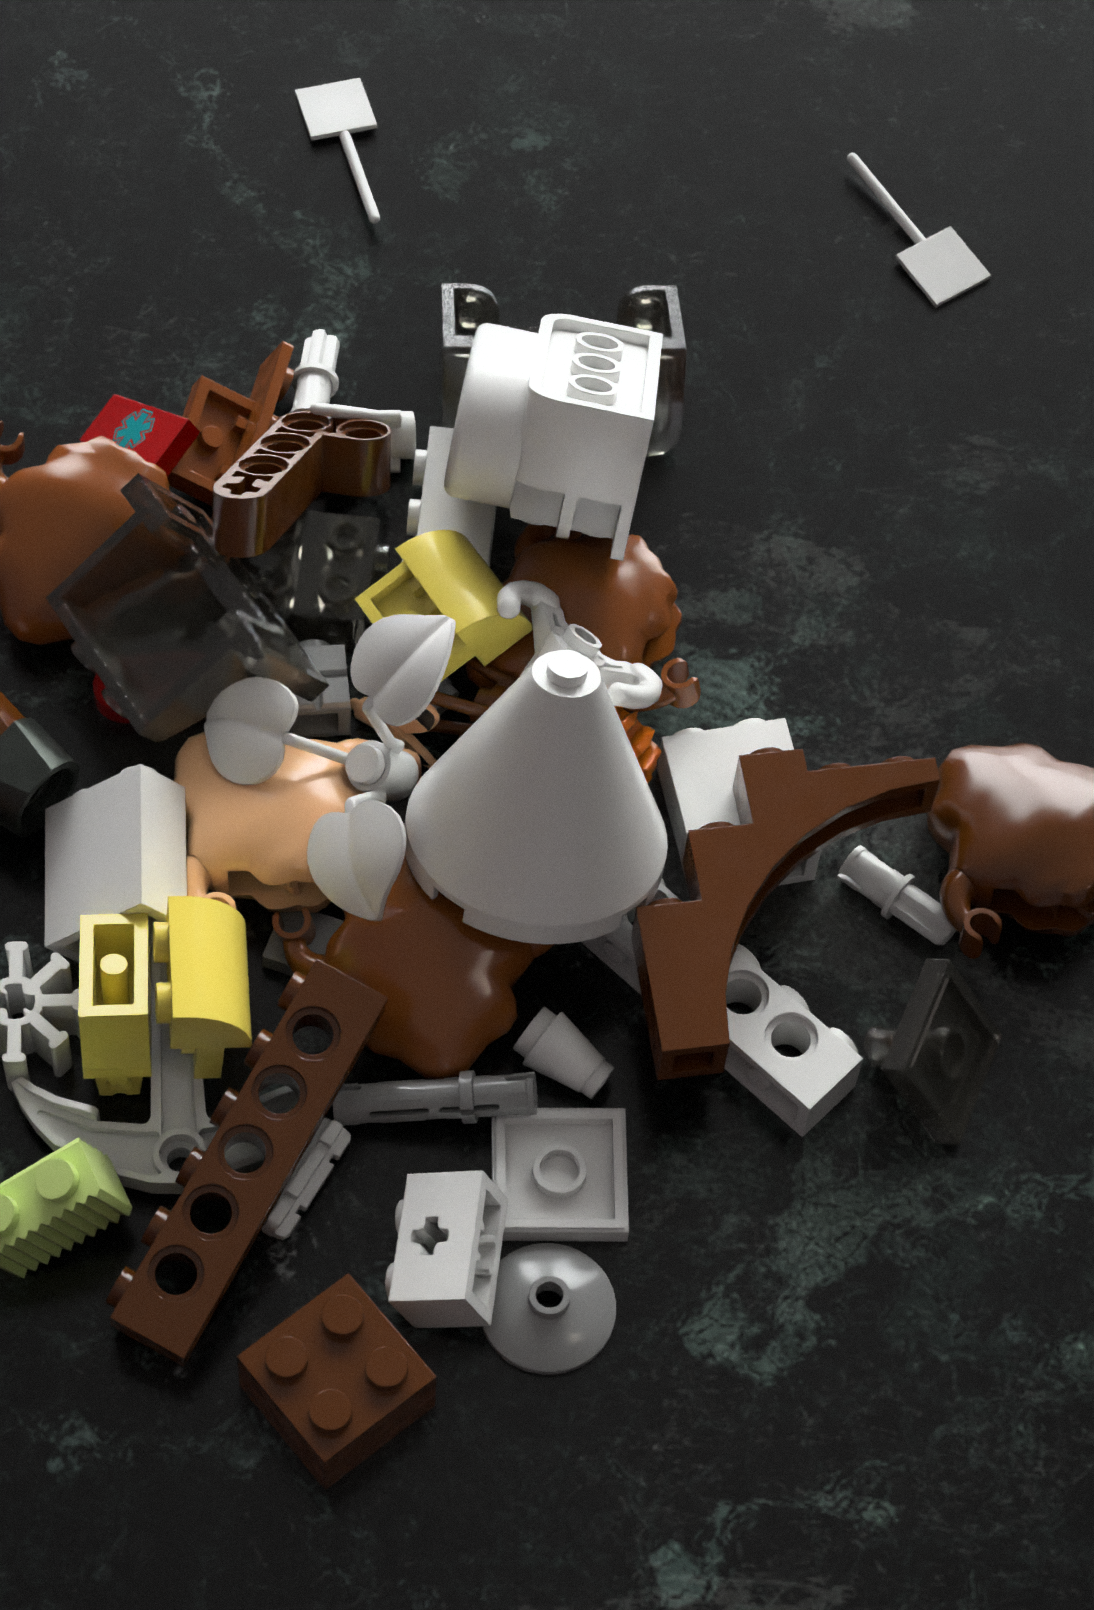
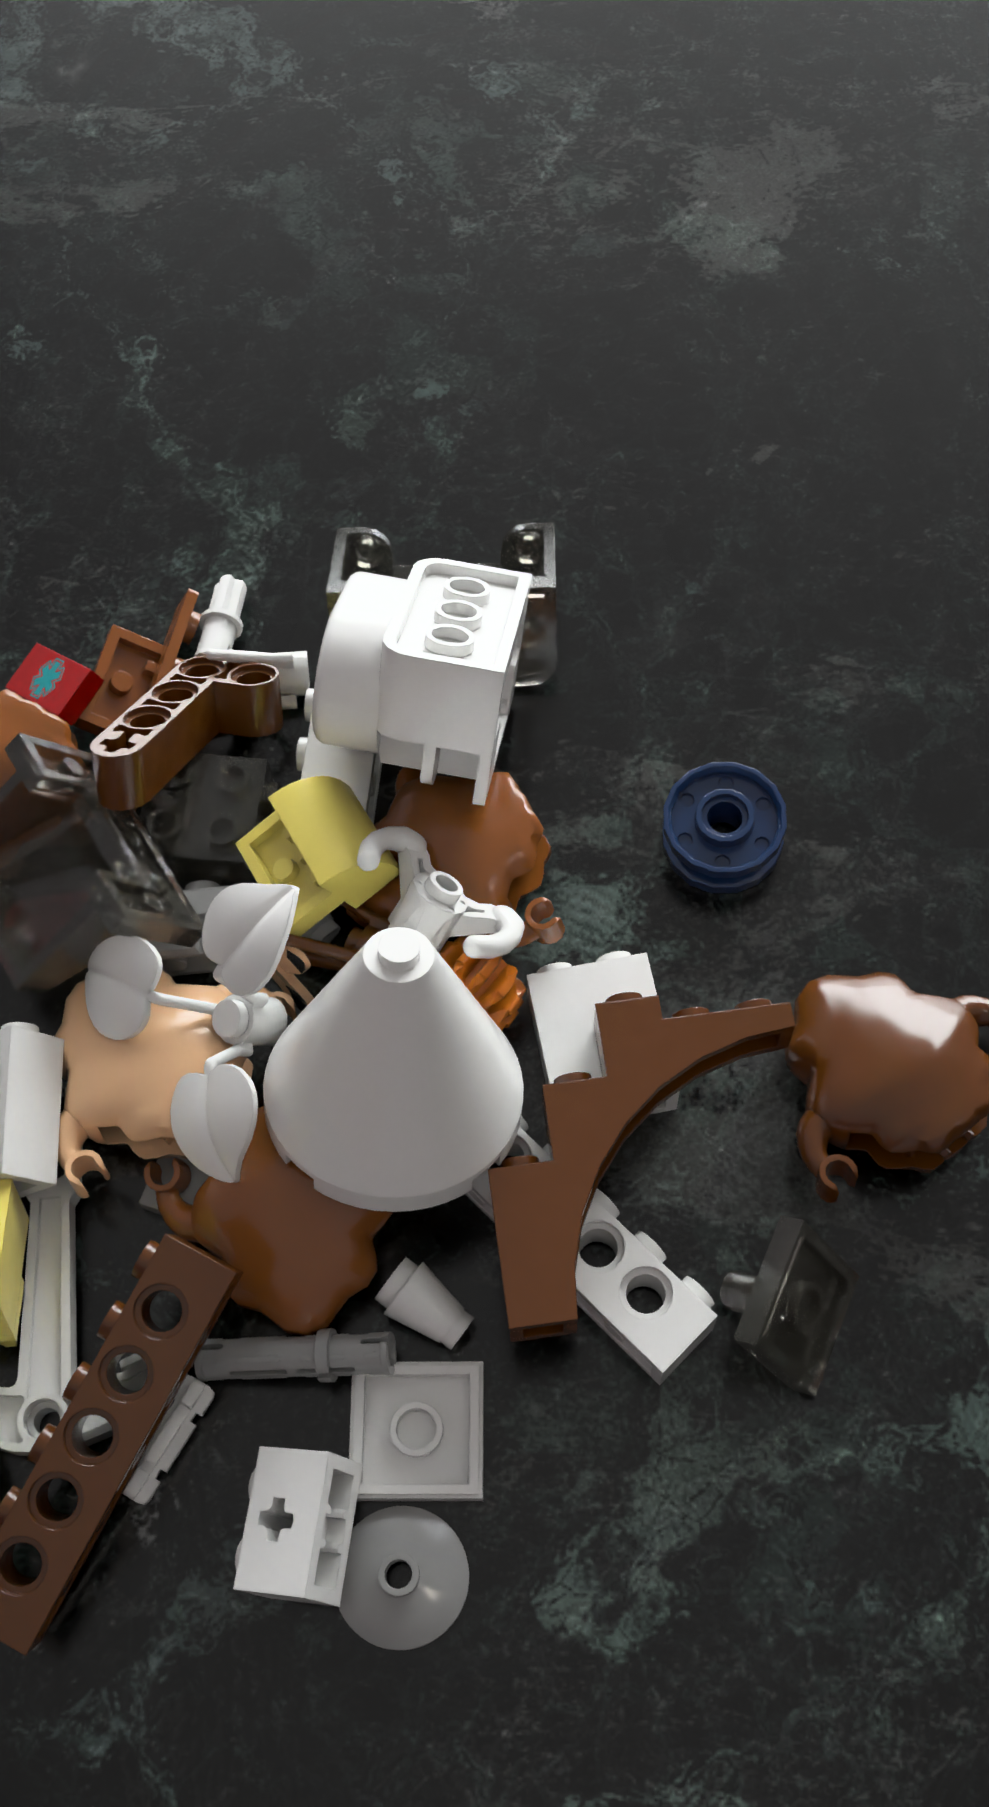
camera: 10 degrees right, 5 degrees up
(206, 980) = (58, 1252): light yellow brick -> none
(336, 1381) = (179, 1673): reddish brown brick -> none
(338, 111) = (257, 370): white piece -> none
(864, 570) = (719, 795): none -> dark blue wheel
(895, 895) = (754, 1128): white axle -> none
(939, 264) = (801, 492): white piece -> none

